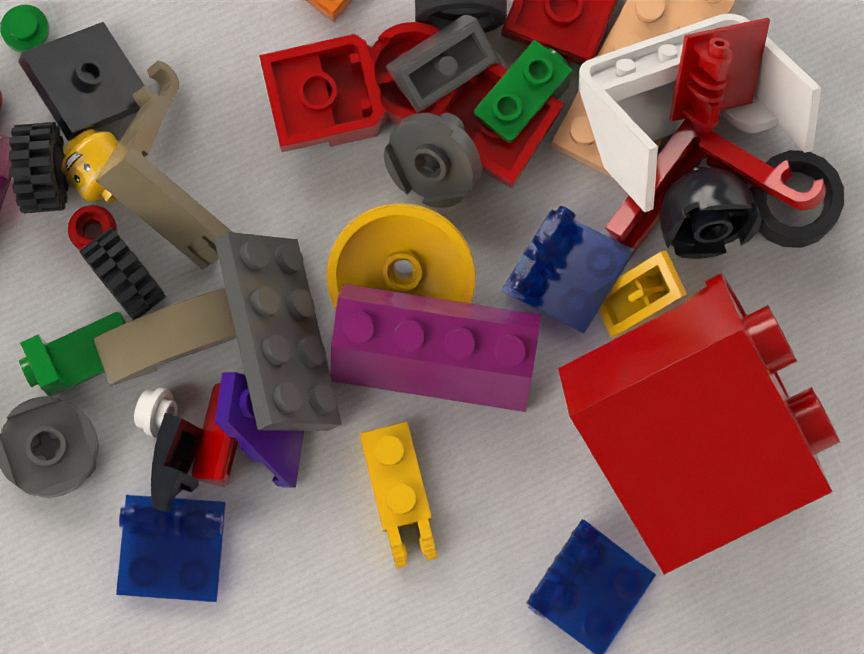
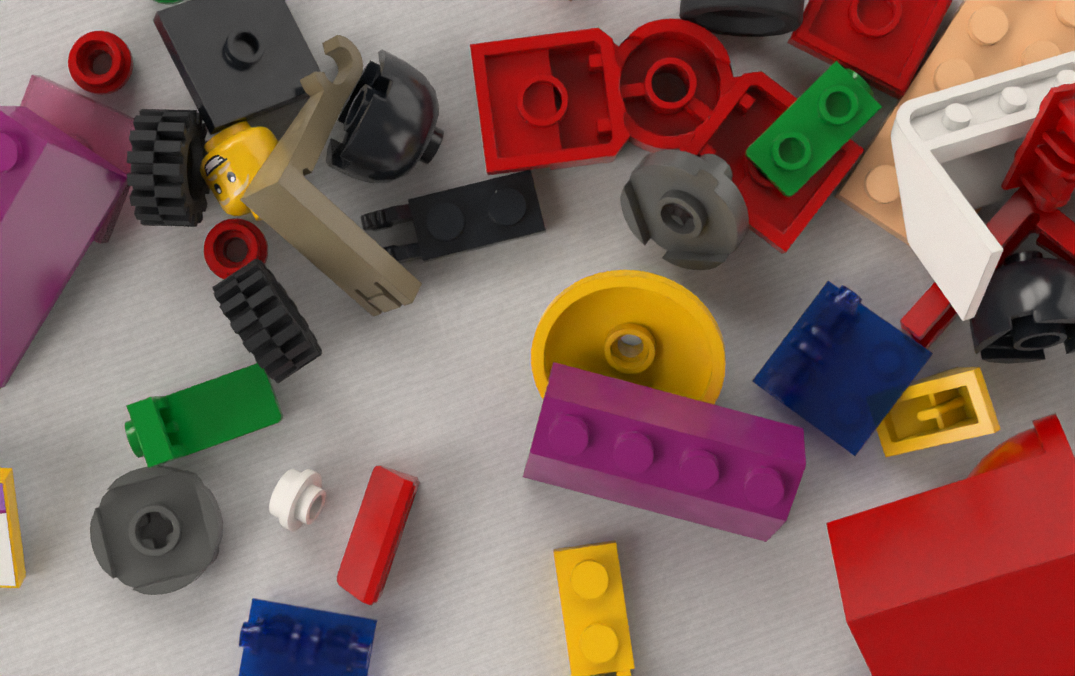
camera: 10 degrees right, 10 degrees up
(165, 336) = (356, 396): dark tan slope -> none
(171, 461) = (311, 568): black slope -> none
(202, 120) = (387, 123): none -> black cylinder
(267, 188) = (464, 218): none -> black hinge
(274, 448) = (434, 531): dark purple wing -> none
(277, 333) = (460, 420): dark grey plate -> none
(443, 62) = (711, 78): dark grey slope -> none

